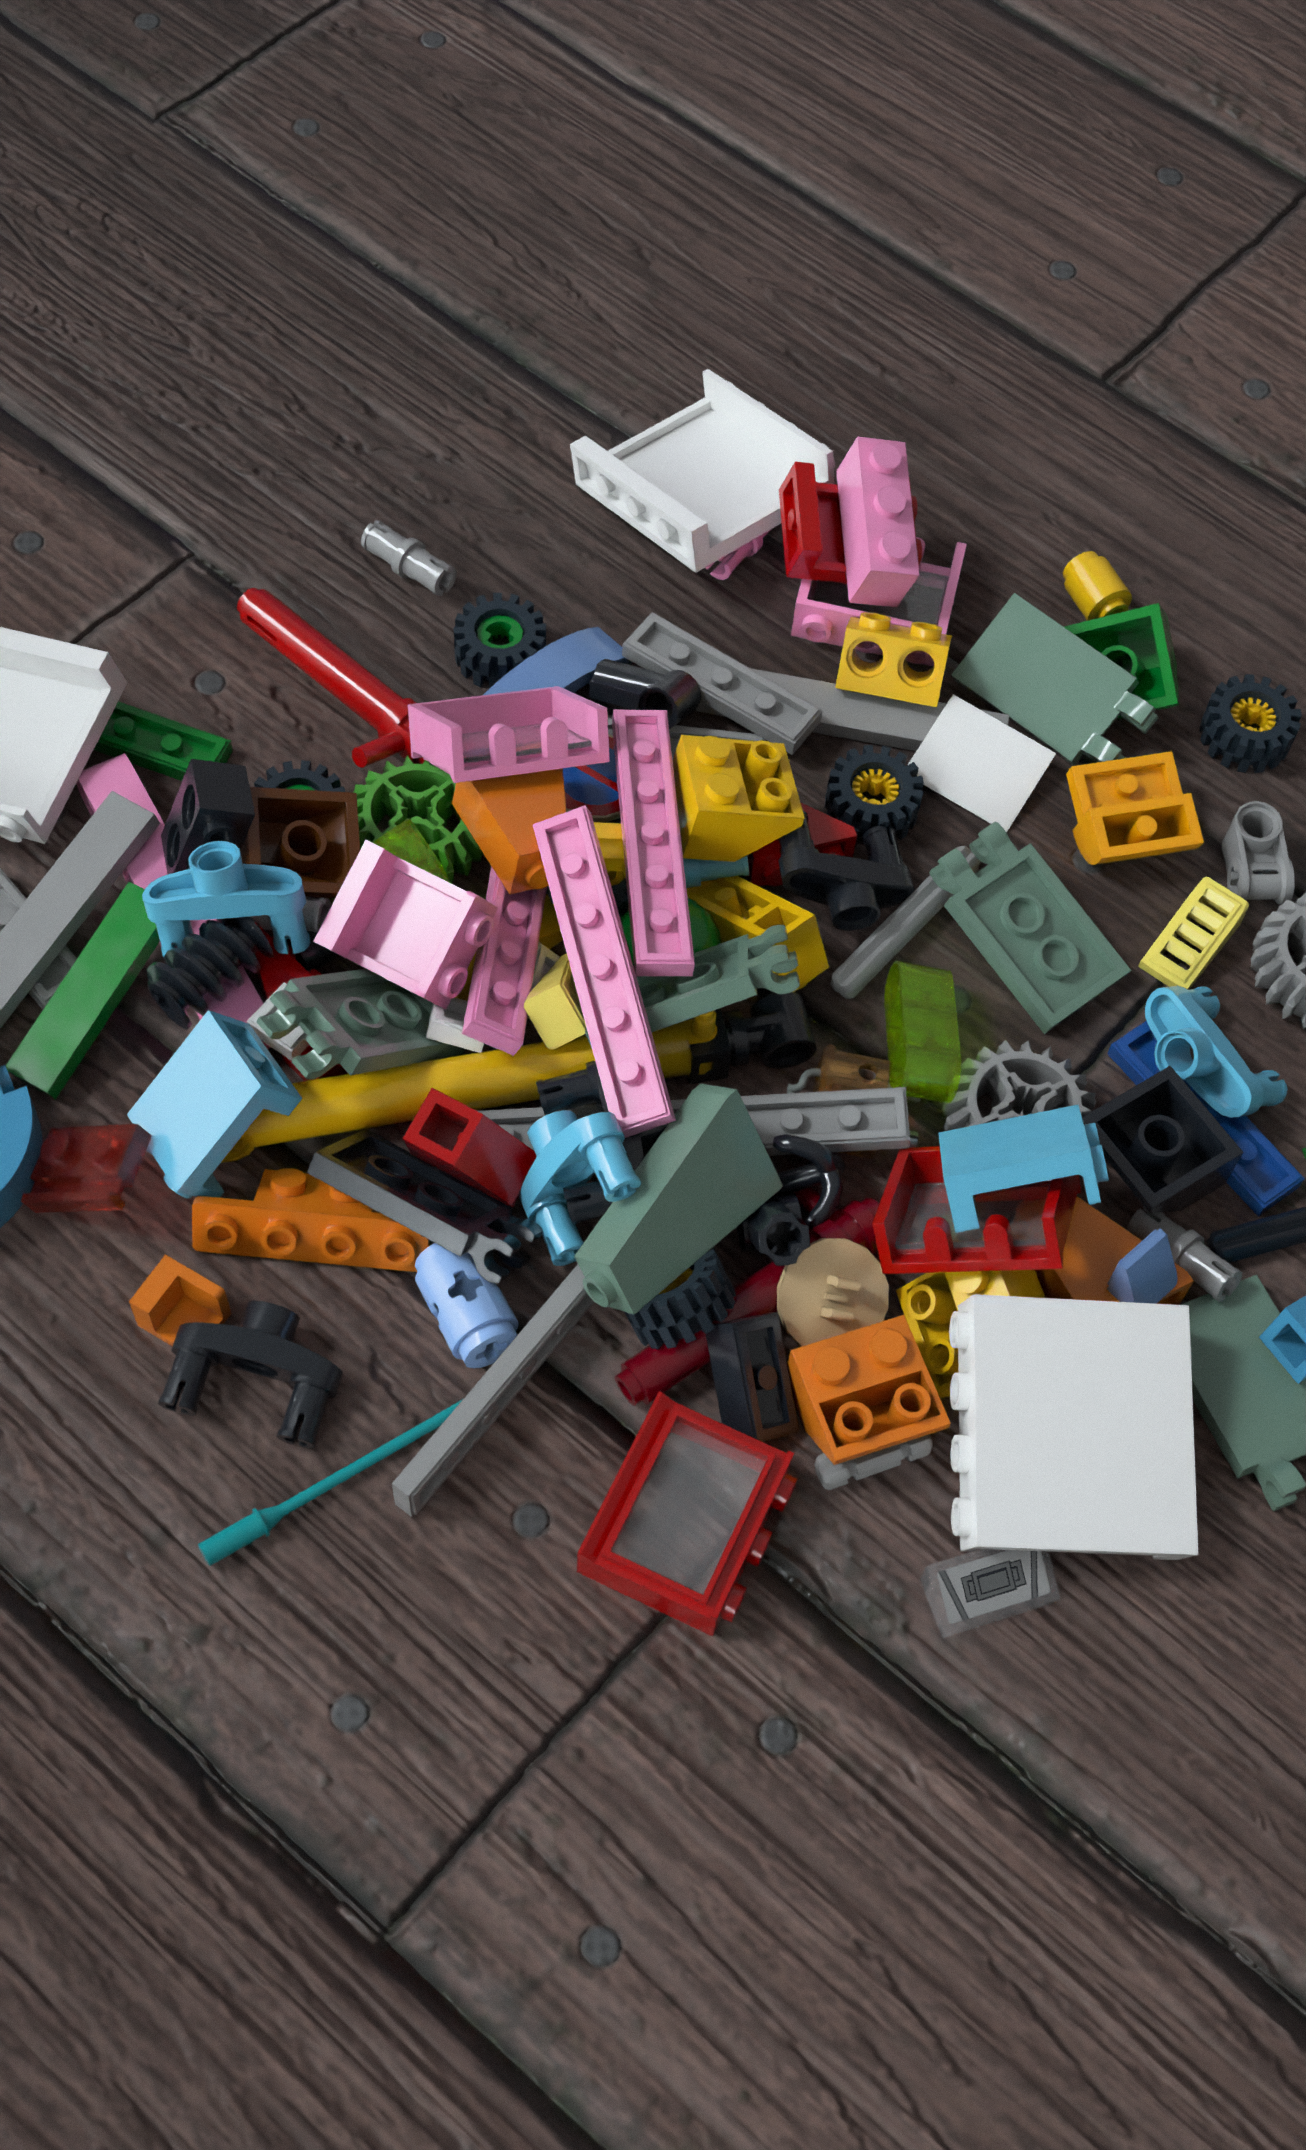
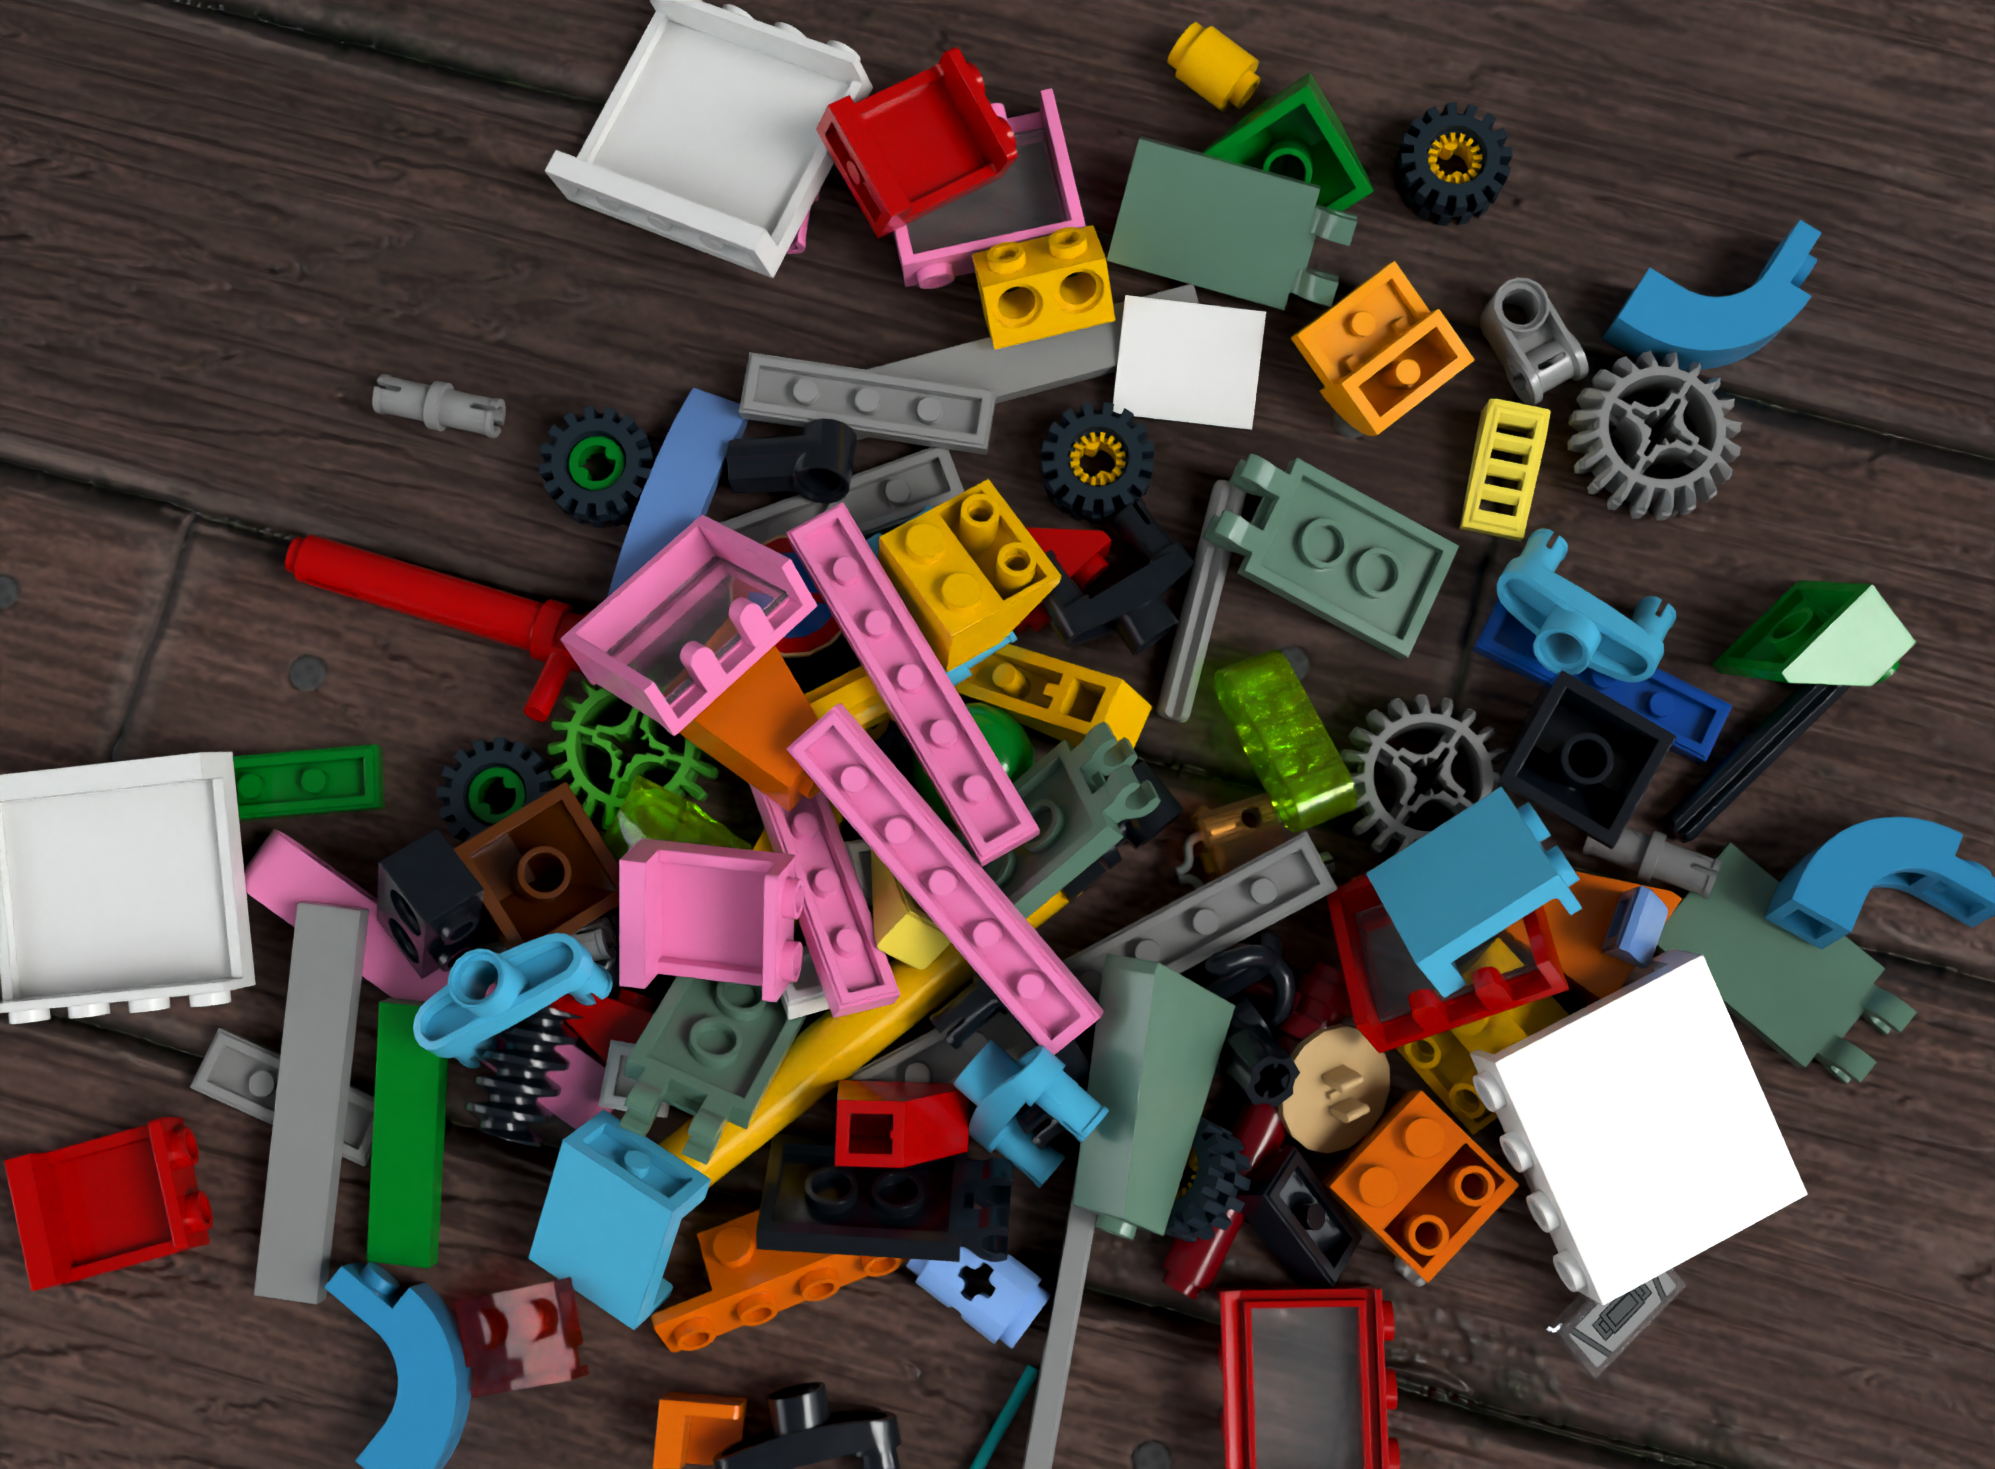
camera: 20 degrees left, 20 degrees up
(877, 522) = (951, 129): bright pink brick -> none

